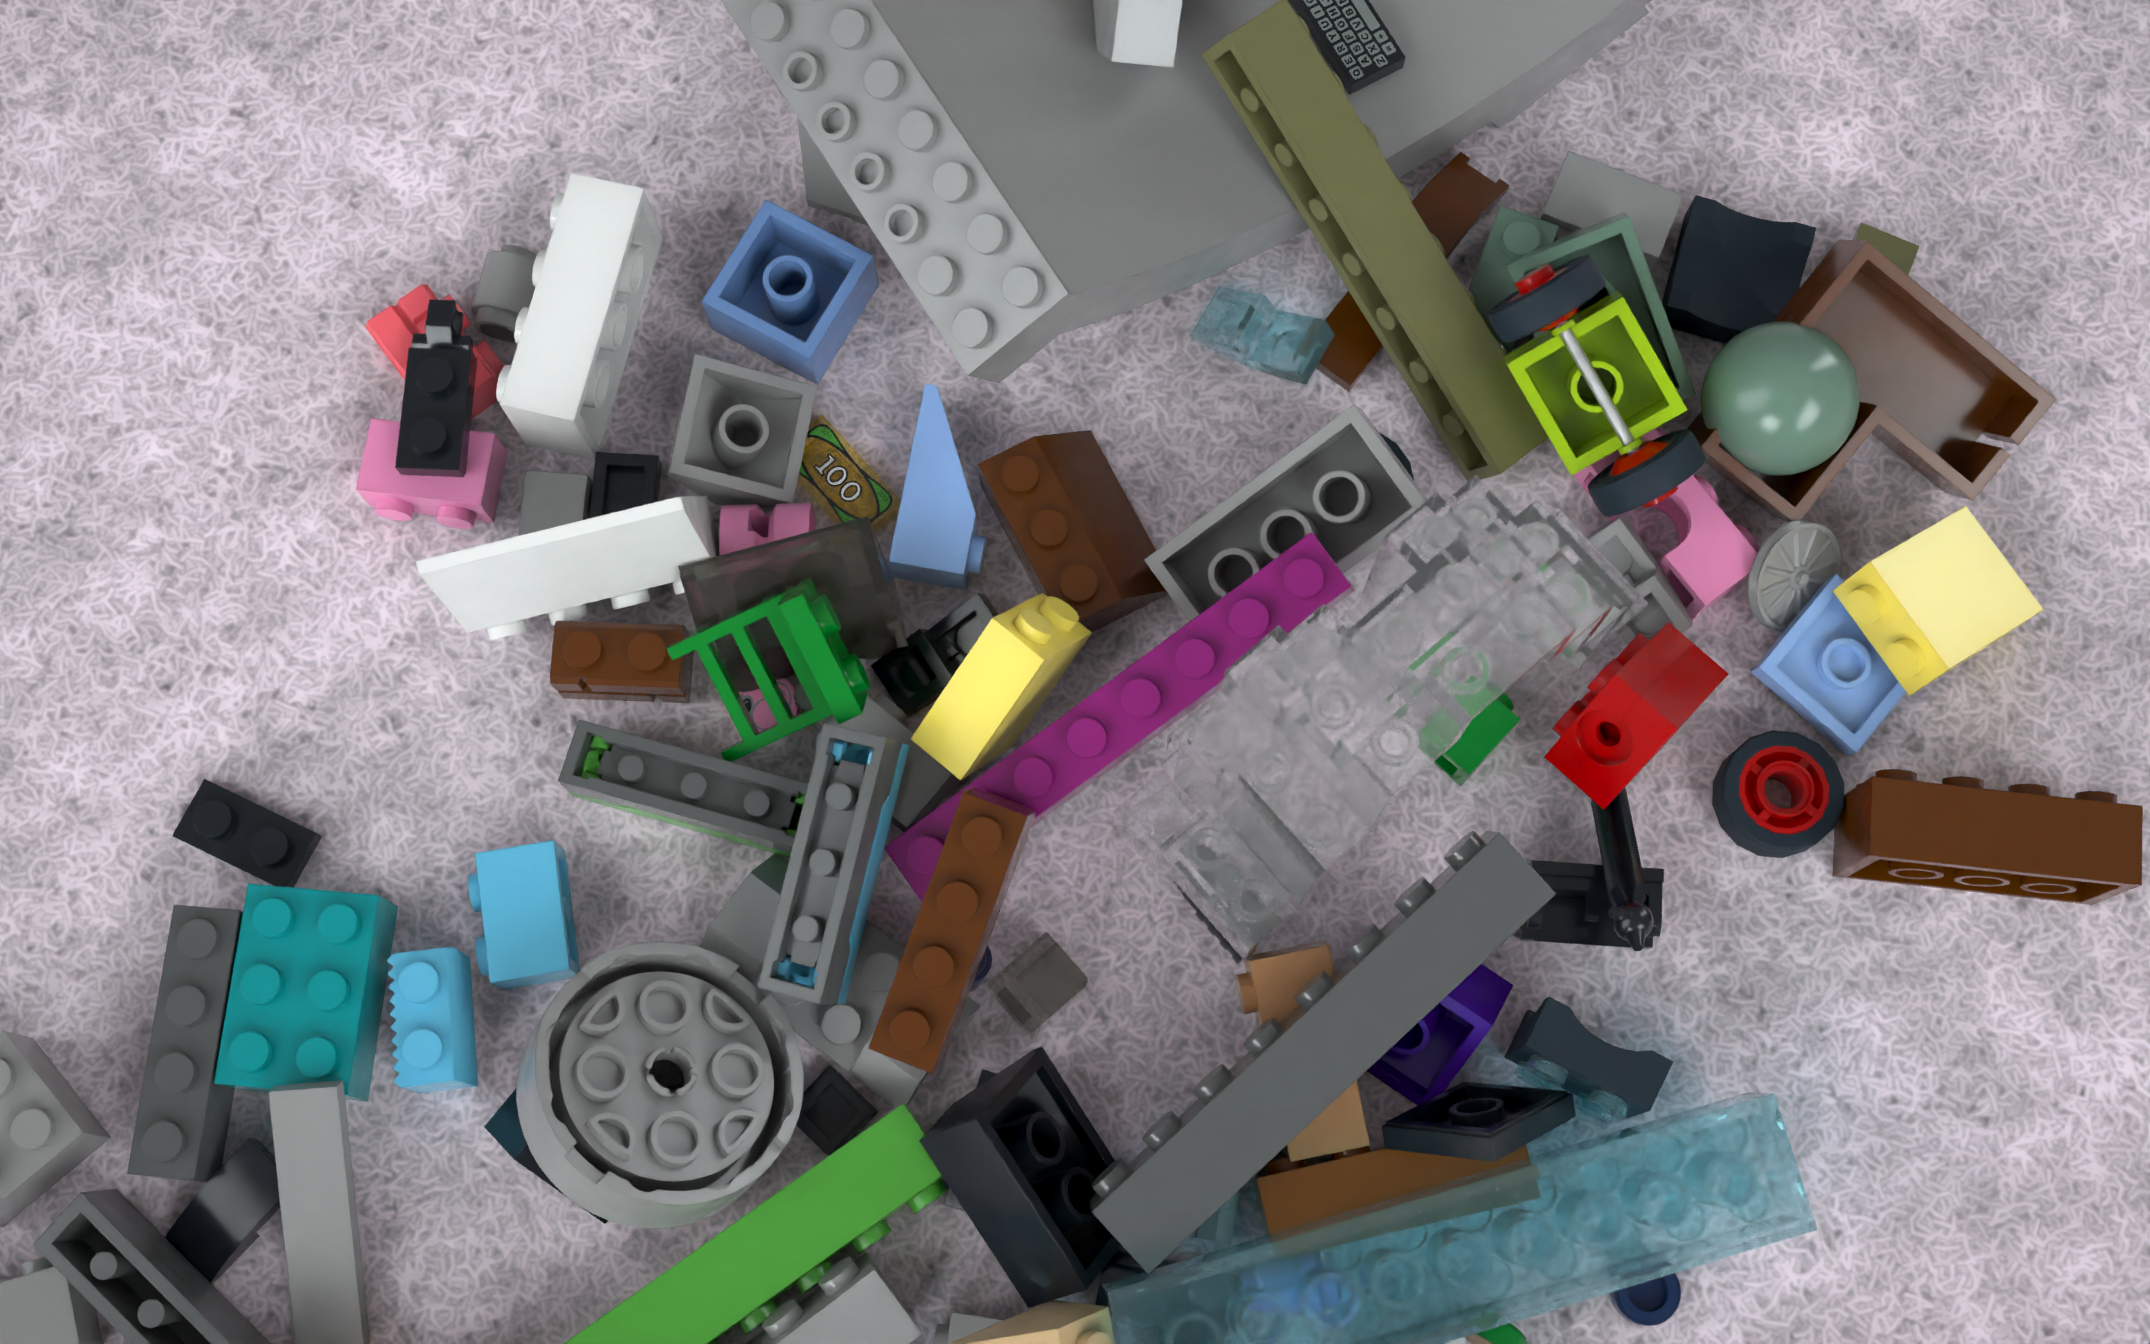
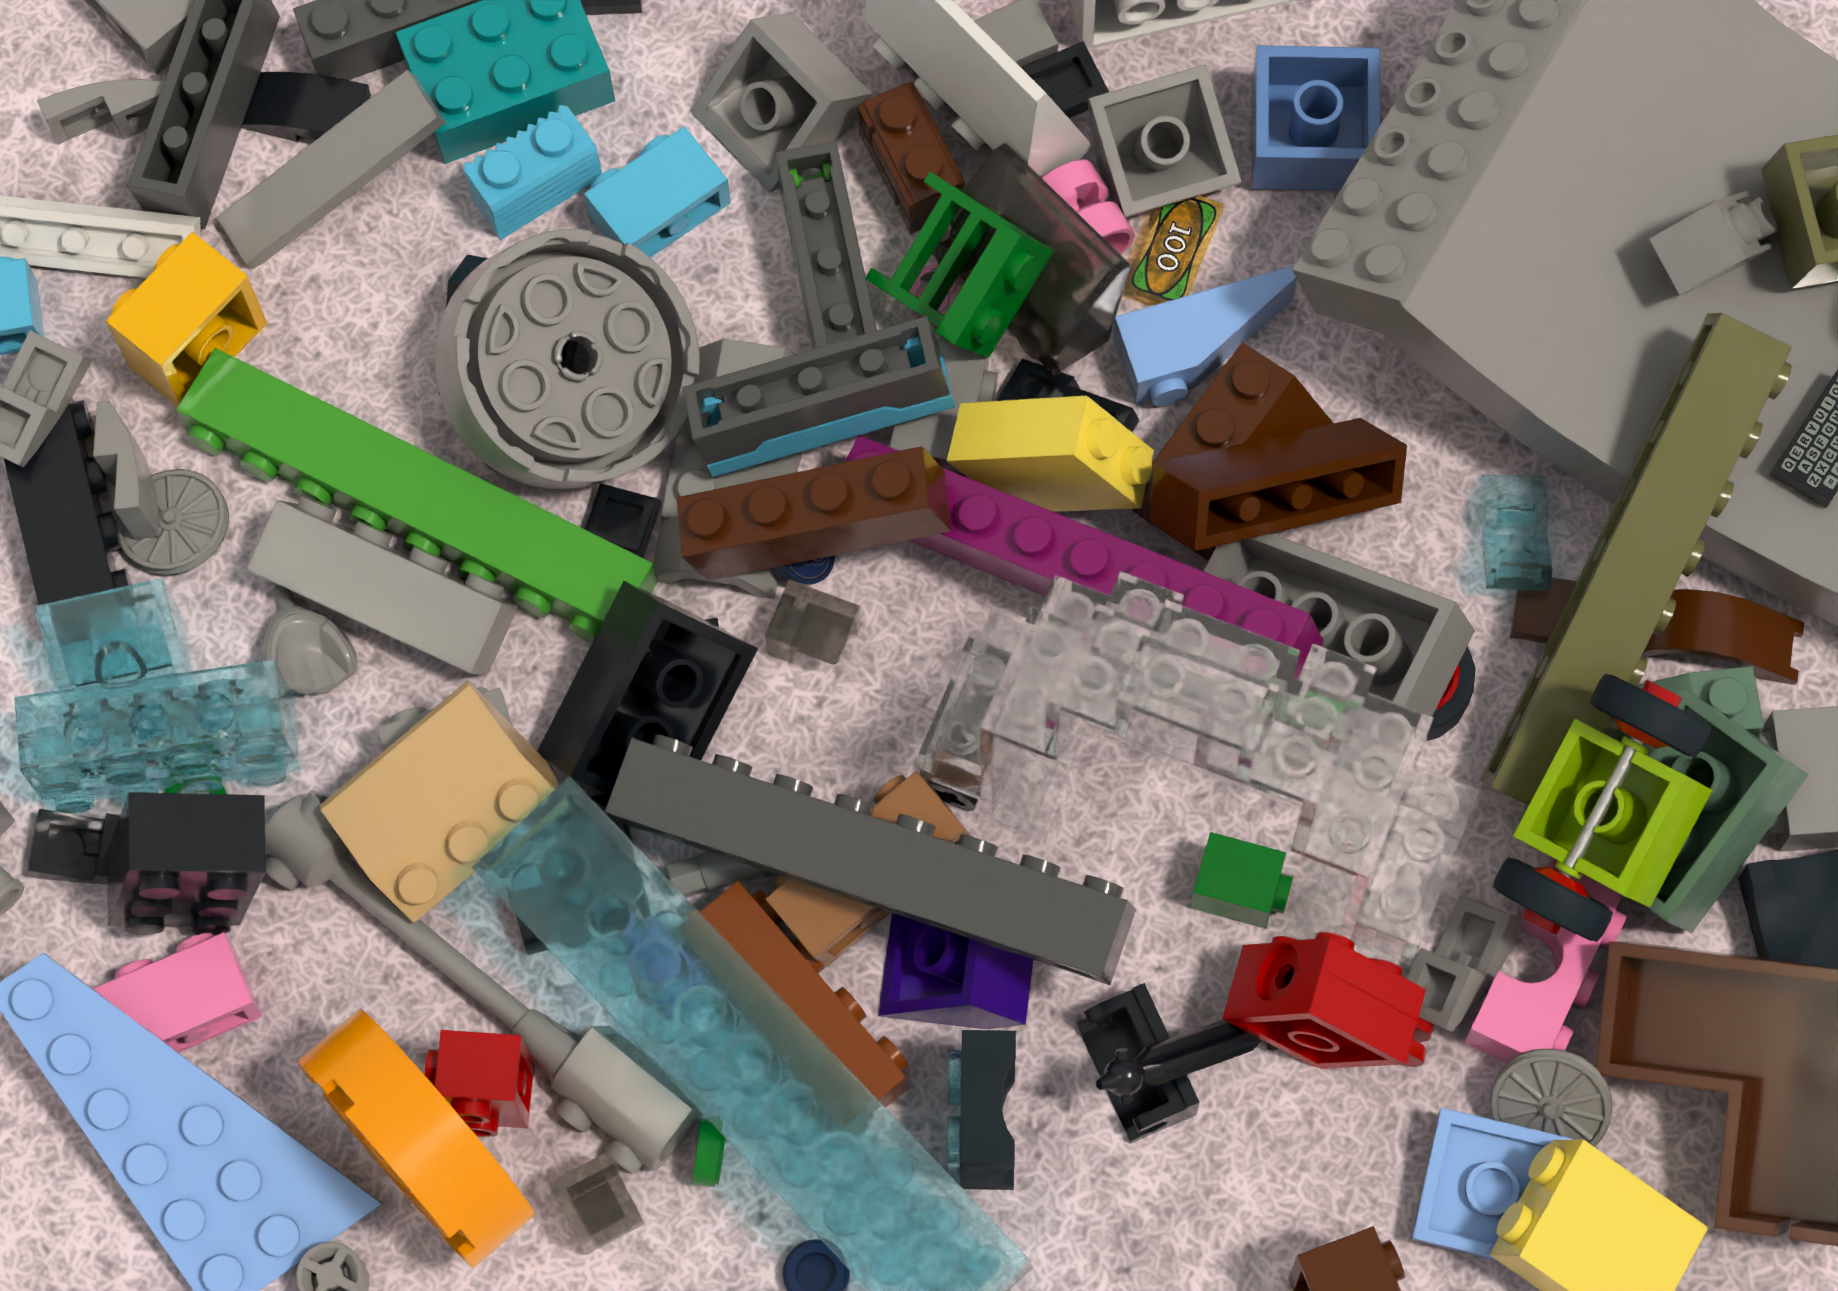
camera: 65 degrees right, 5 degrees down
(491, 752) = (778, 95): none -> light grey slope
(1135, 504) = (1277, 483): none -> reddish brown brick
(1479, 1121) = (880, 1033): black tile -> none
(1781, 397) = (1700, 992): sand green piece -> none
(1812, 783) = (1339, 1149): wheel -> none

